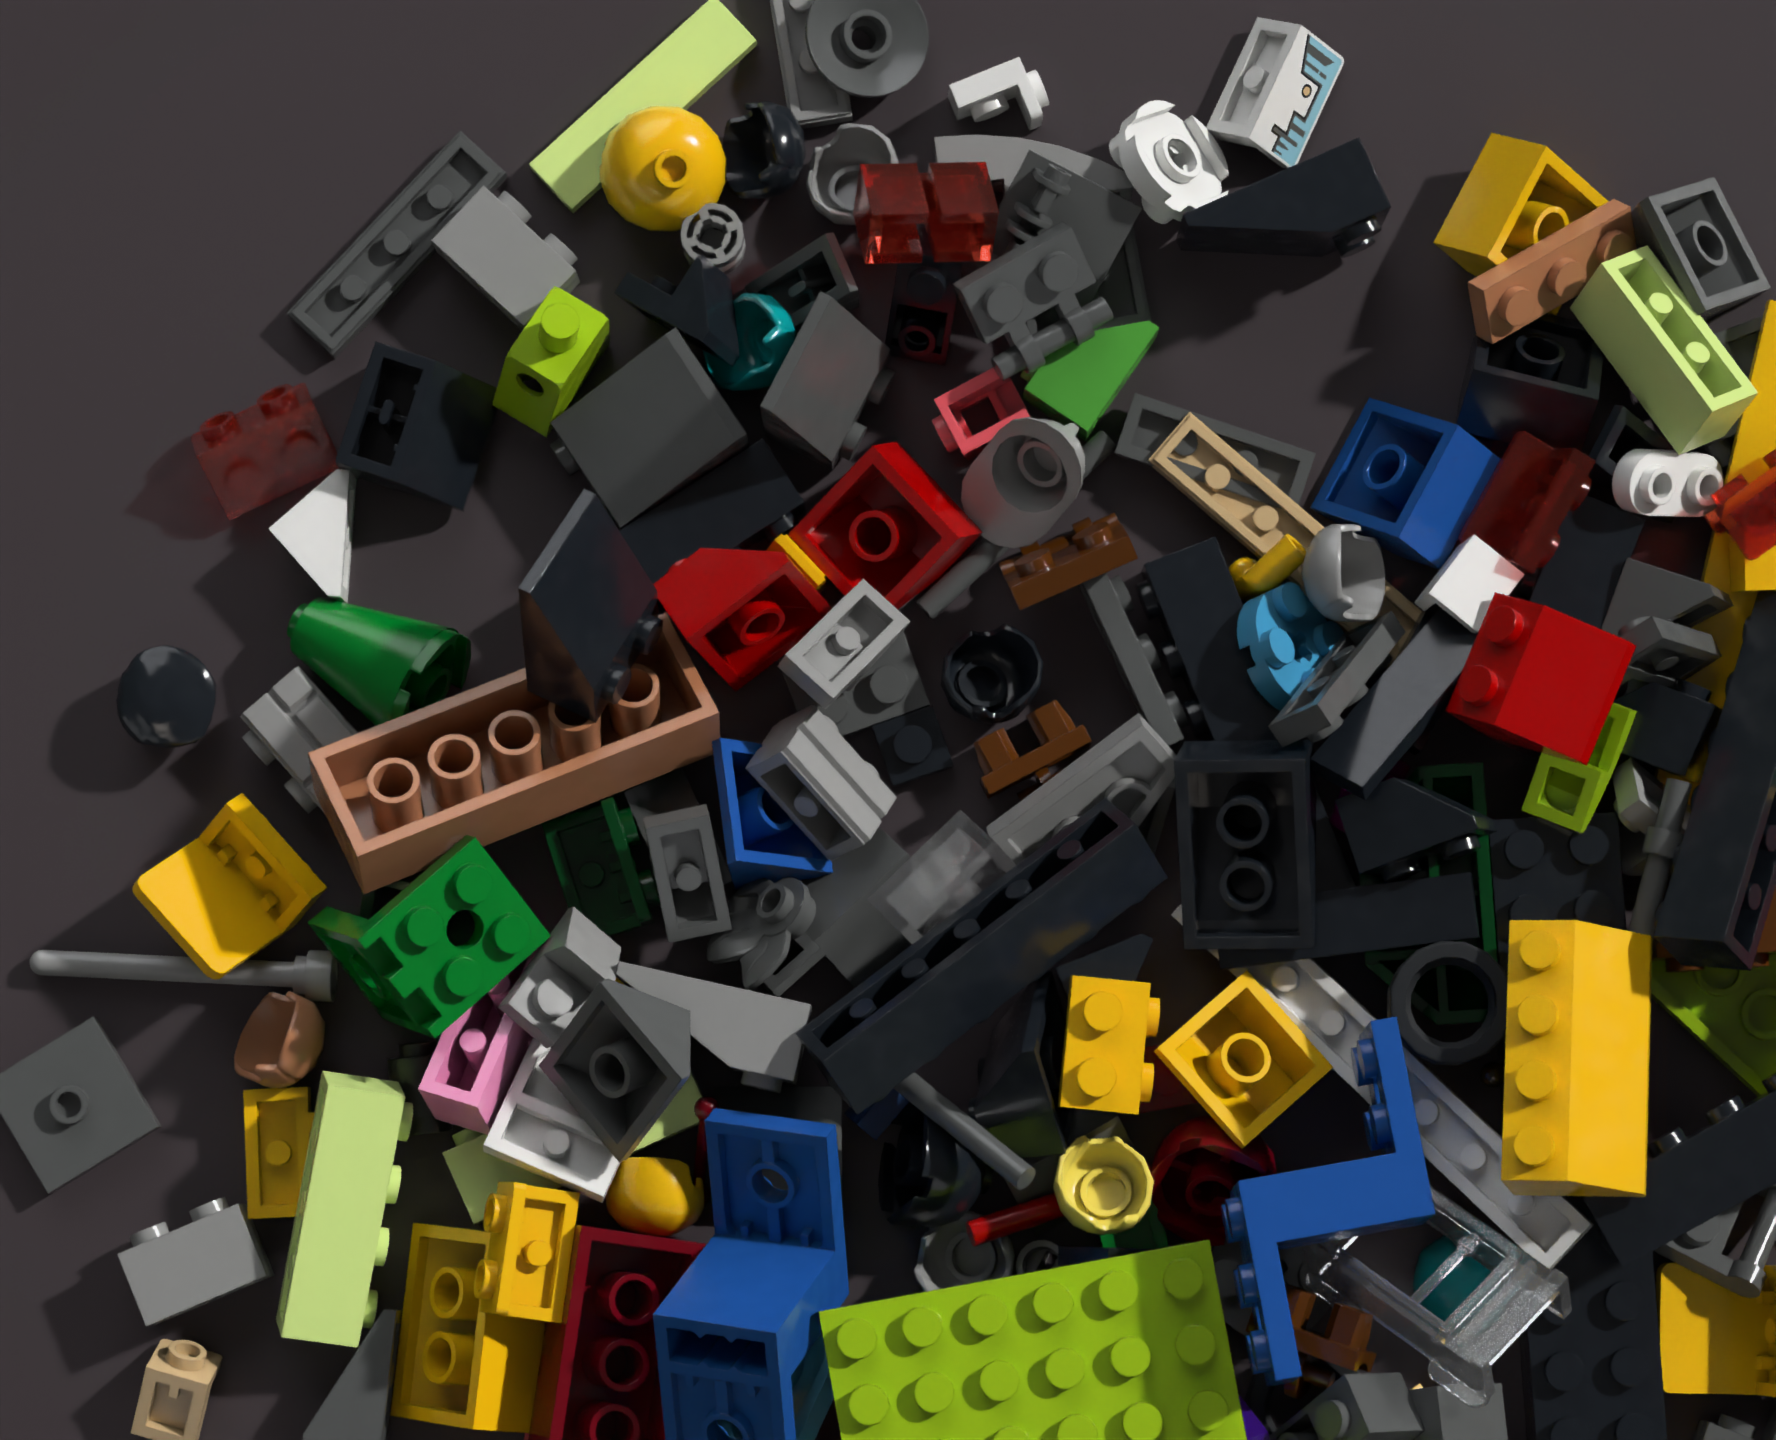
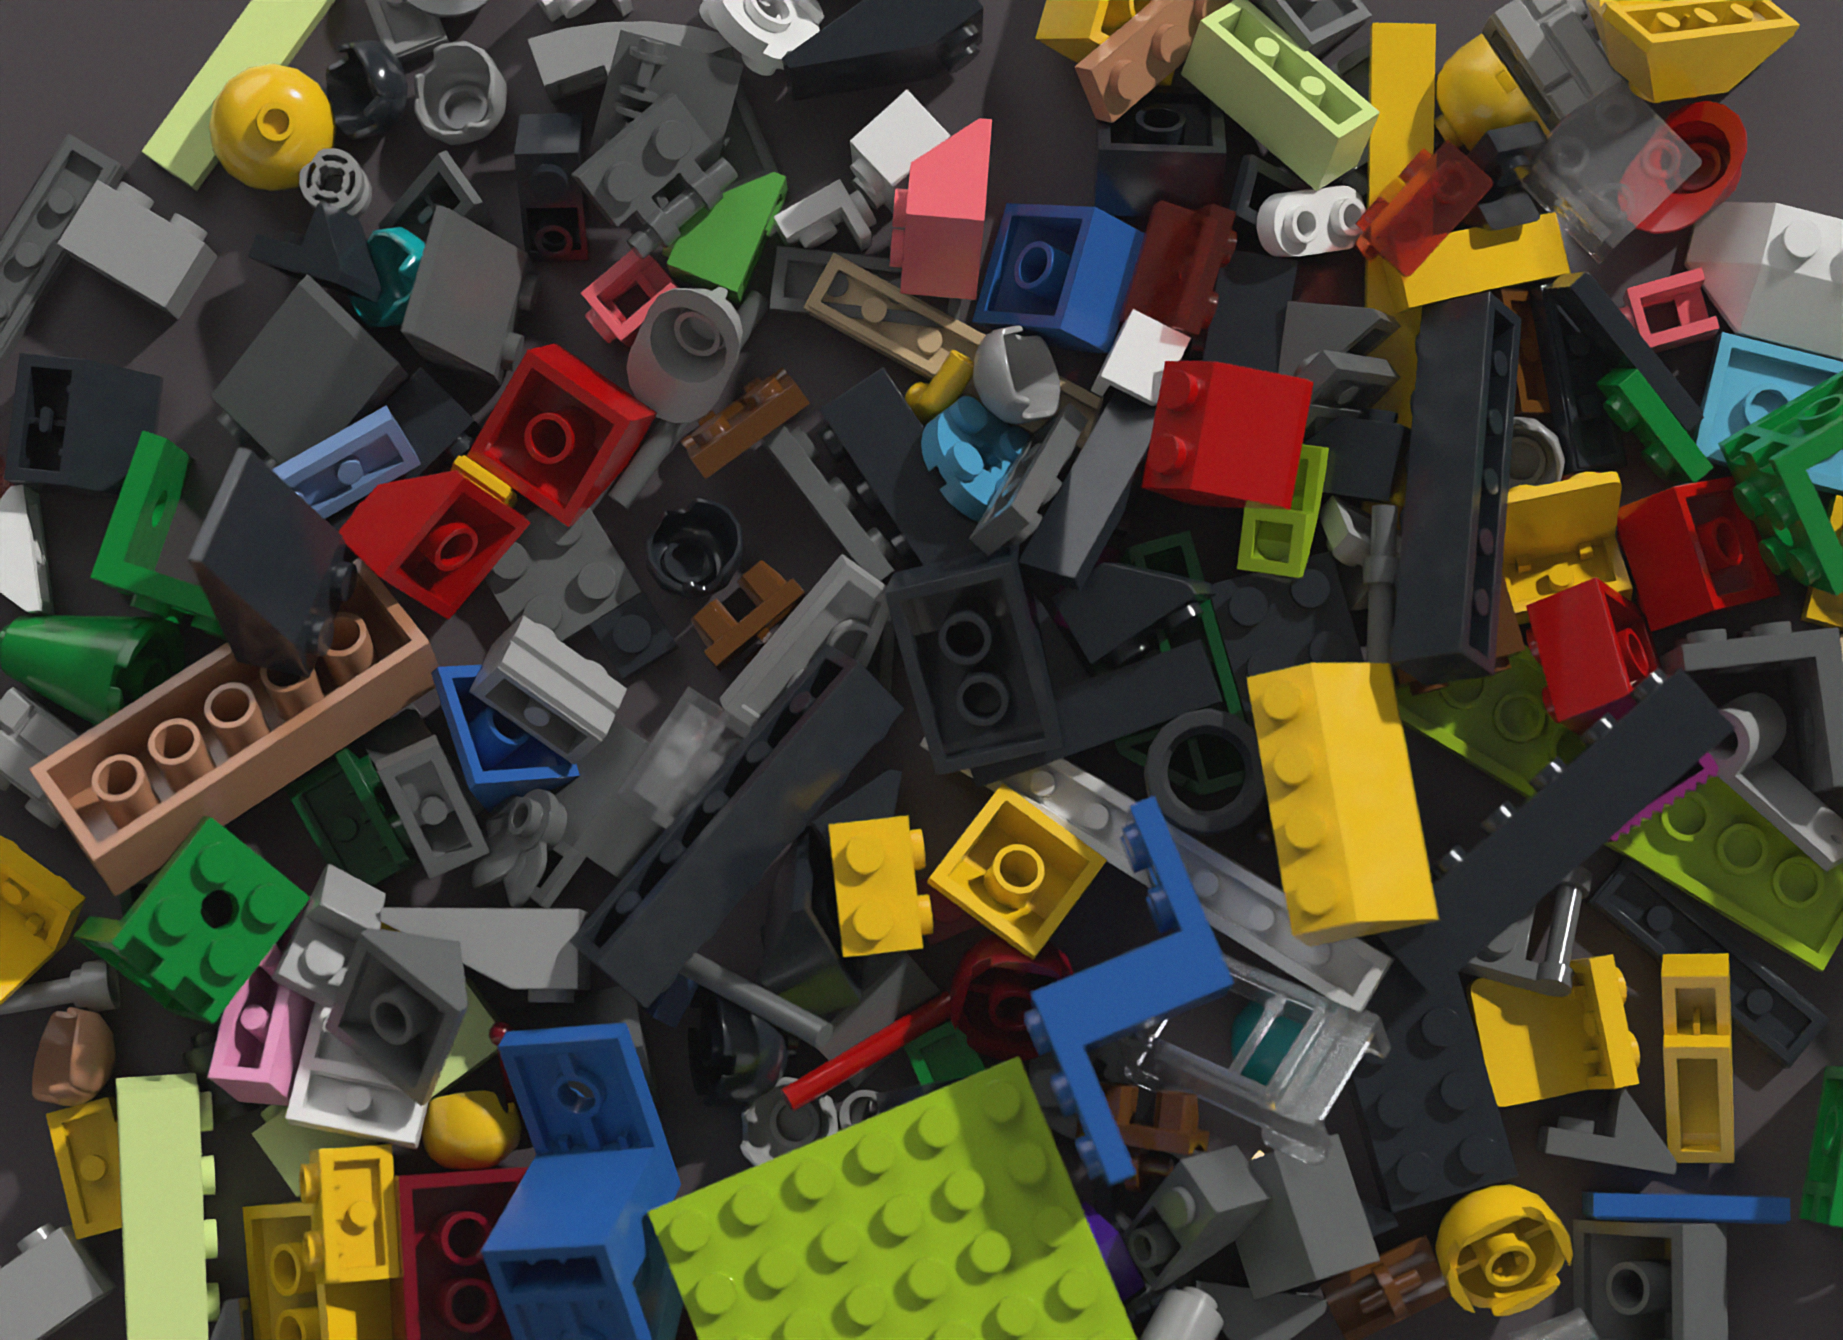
camera: 10 degrees left, 0 degrees up
(449, 546) = (139, 532): none -> green bracket
(556, 350) = (201, 321): lime torso -> none
(674, 520) = (350, 463): none -> medium blue plate
(844, 644) = (540, 550): light grey slope -> none
(950, 200) = (552, 91): clear red piece -> none
(1102, 1185) = (905, 1024): light yellow hair -> none
(1176, 376) = (815, 217): none -> white bracket
(1275, 330) = (888, 147): none -> white brick
(1308, 403) = (943, 216): none -> coral slope

